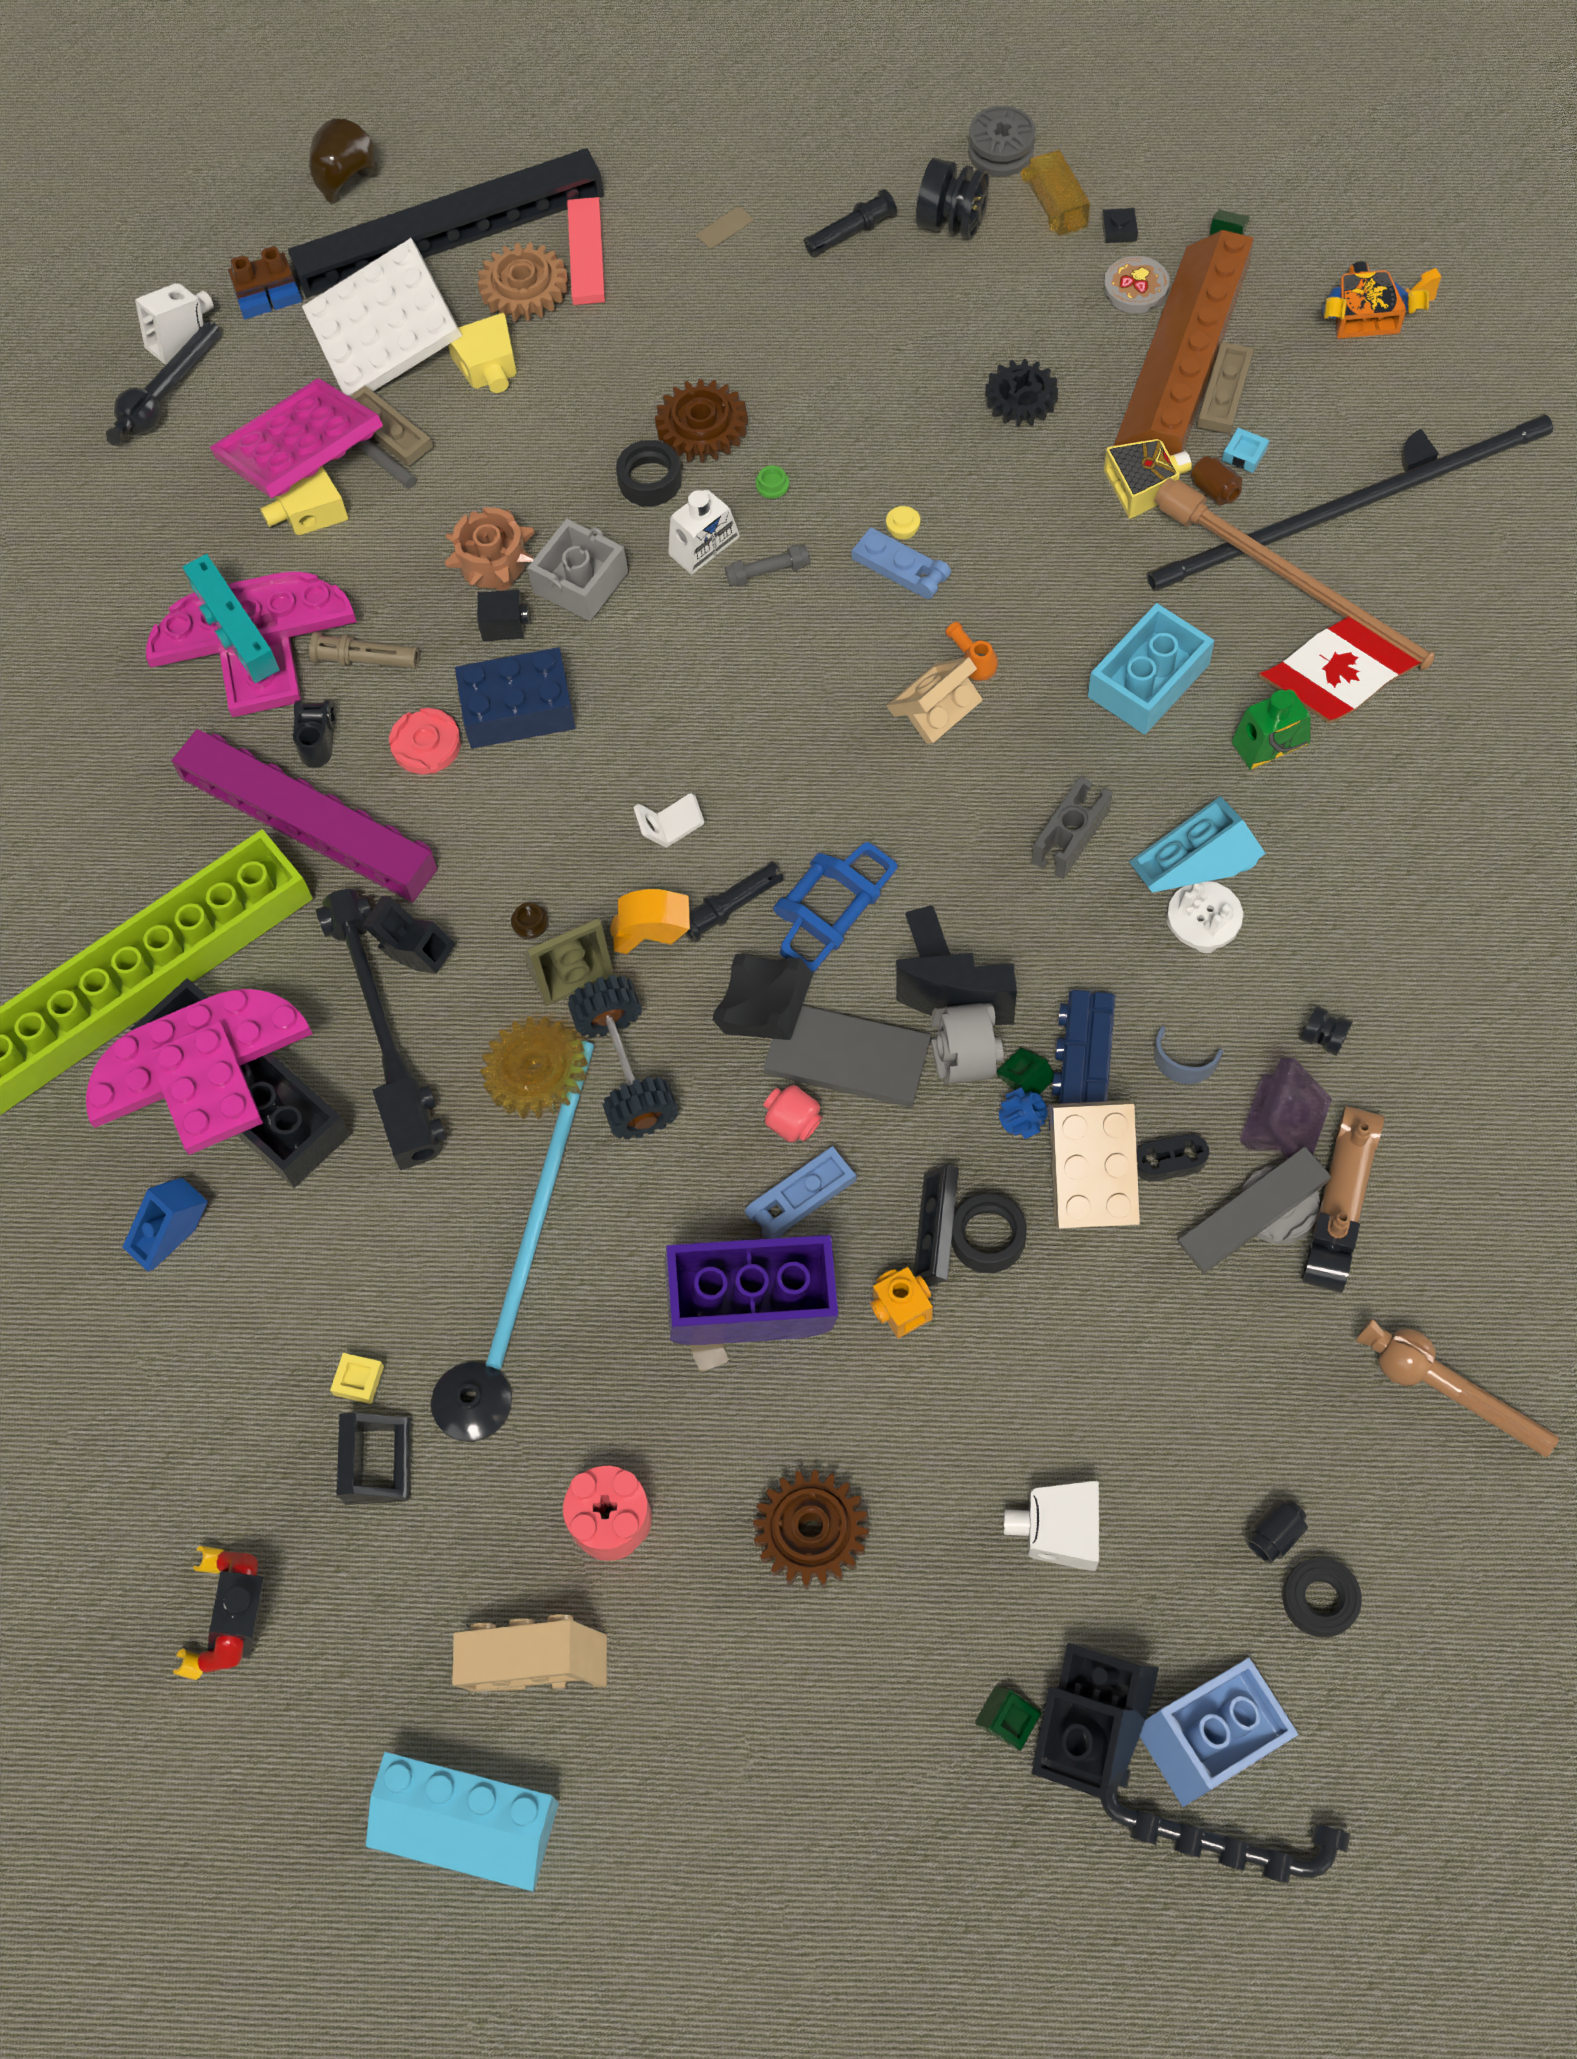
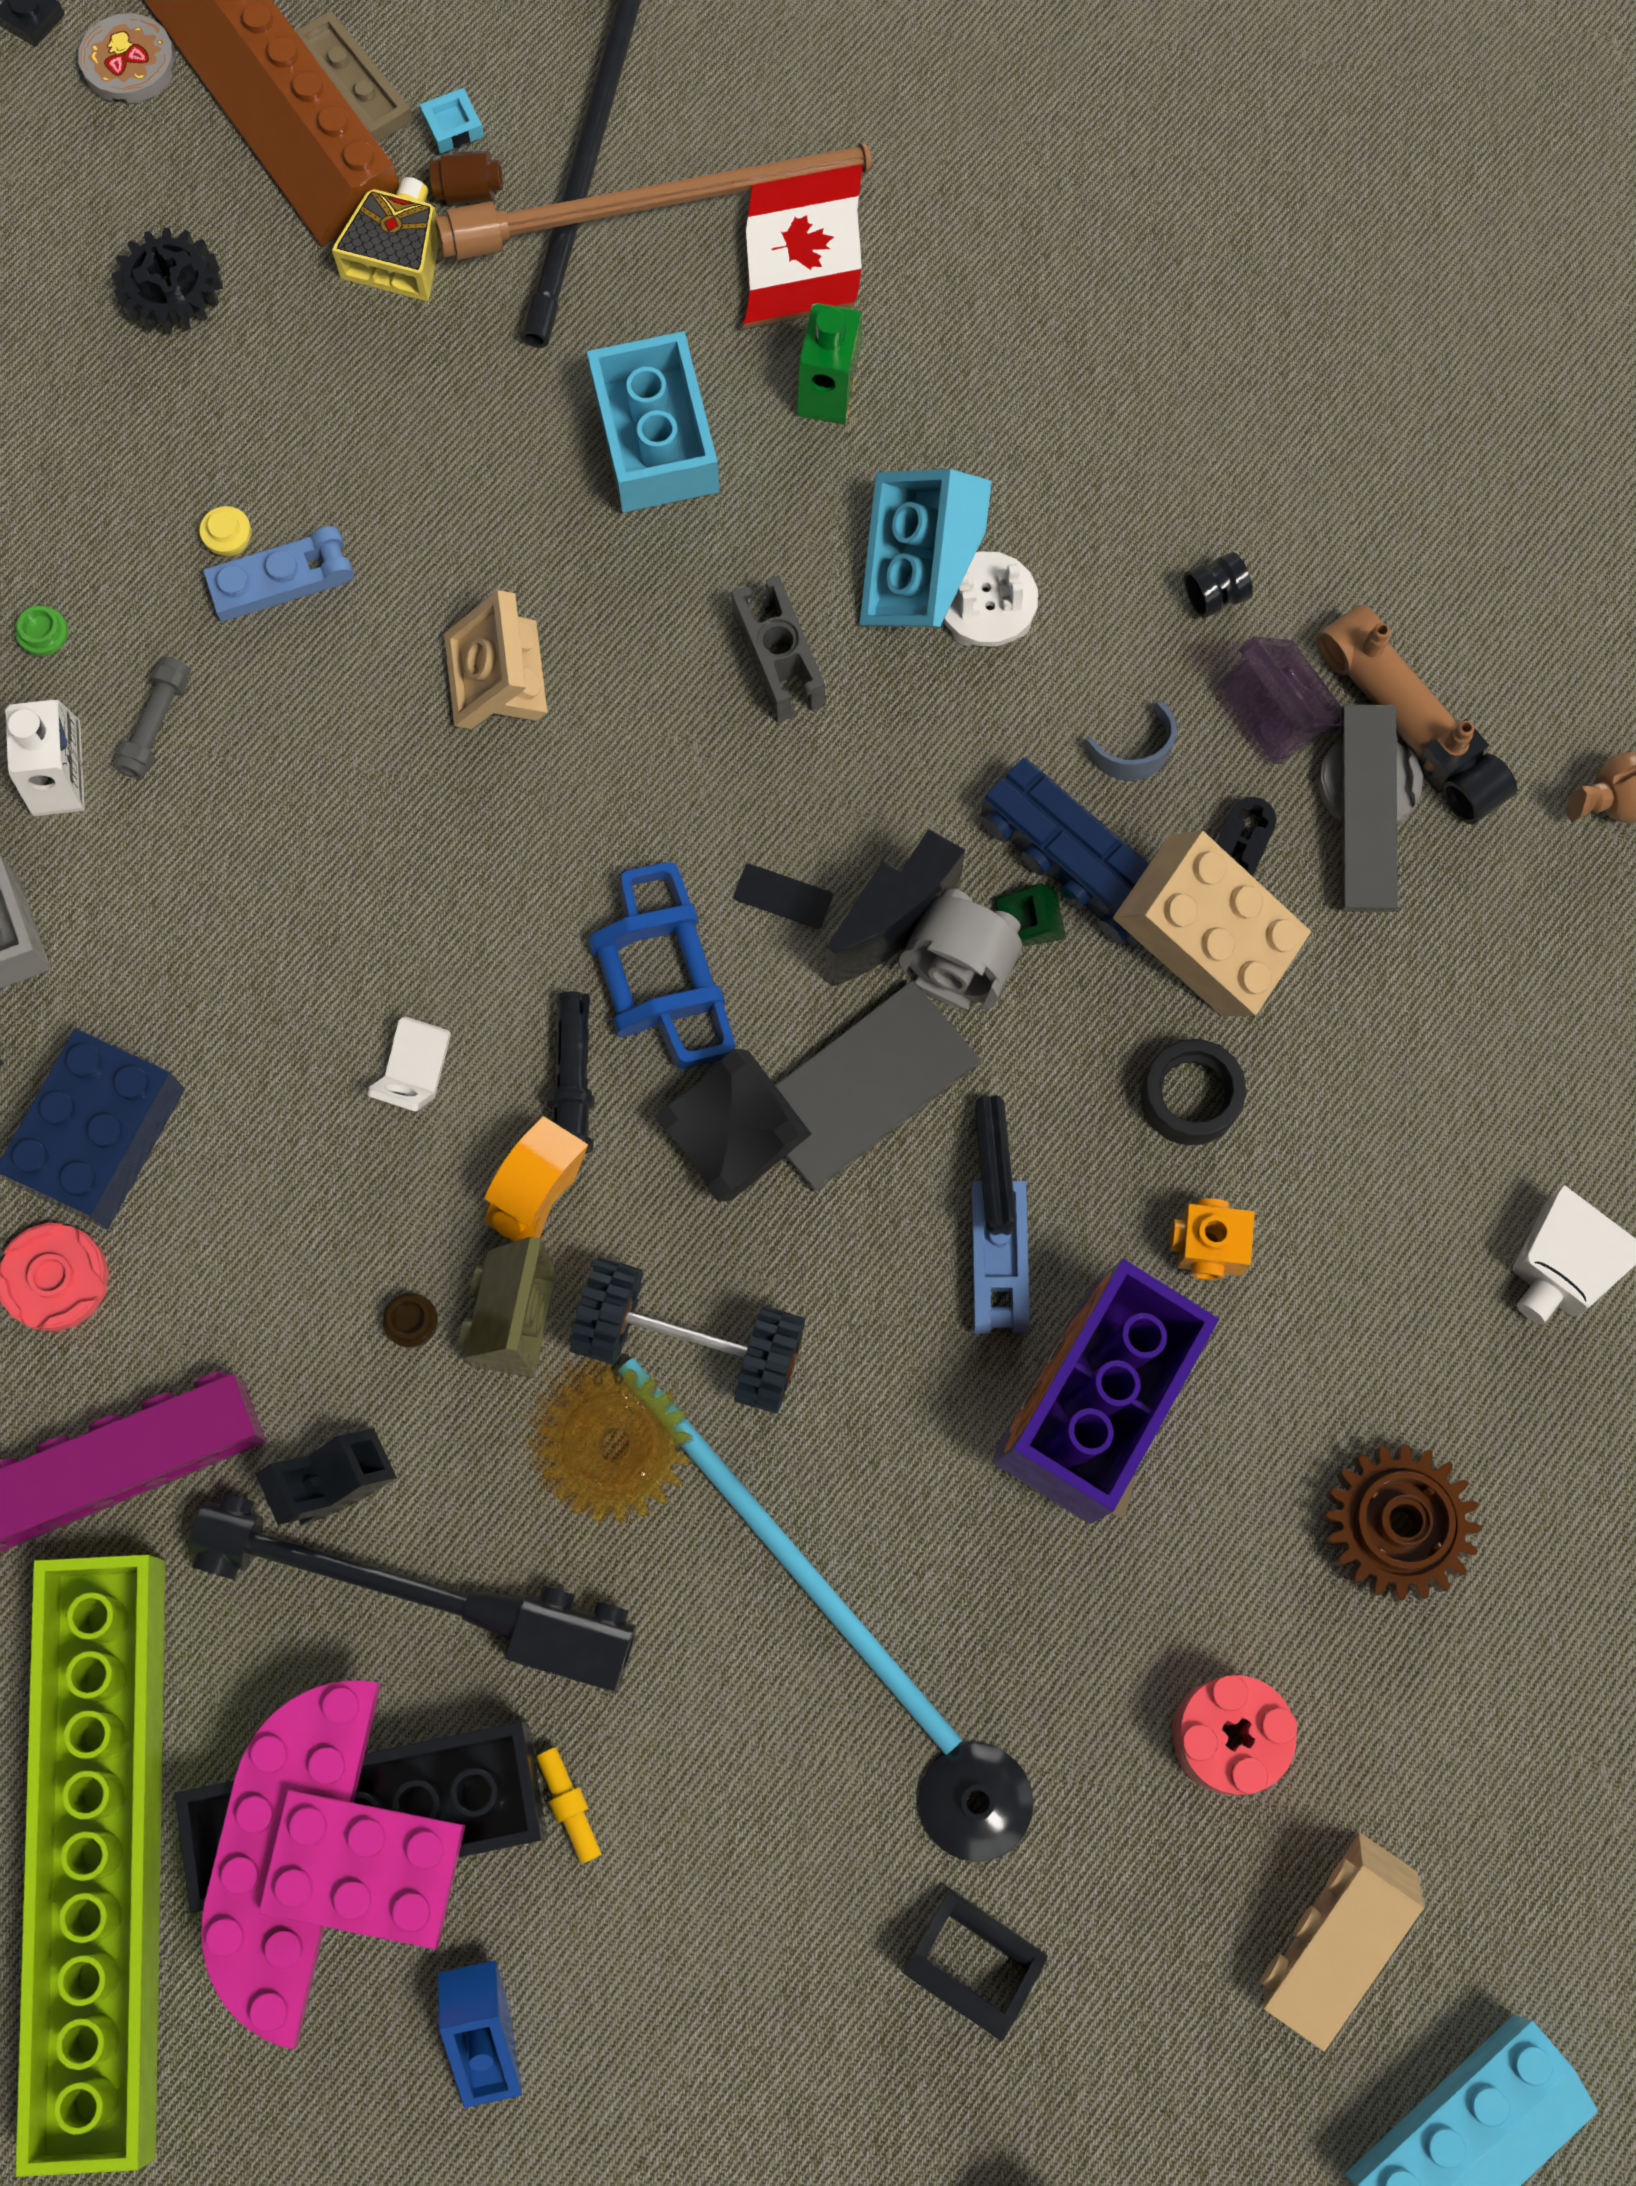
camera: 60 degrees left, 10 degrees up
(319, 1185) = (568, 1805): none -> yellow bar
(357, 1378) = (858, 1921): light yellow plate -> none
(792, 1113) = (899, 1196): coral head -> none
(850, 1149) = (995, 1165): none -> black axle
(936, 1224) = (1147, 1139): black tile -> none
(986, 664) = (469, 592): orange bar -> none
(1023, 1113) = (1084, 953): blue gear -> none

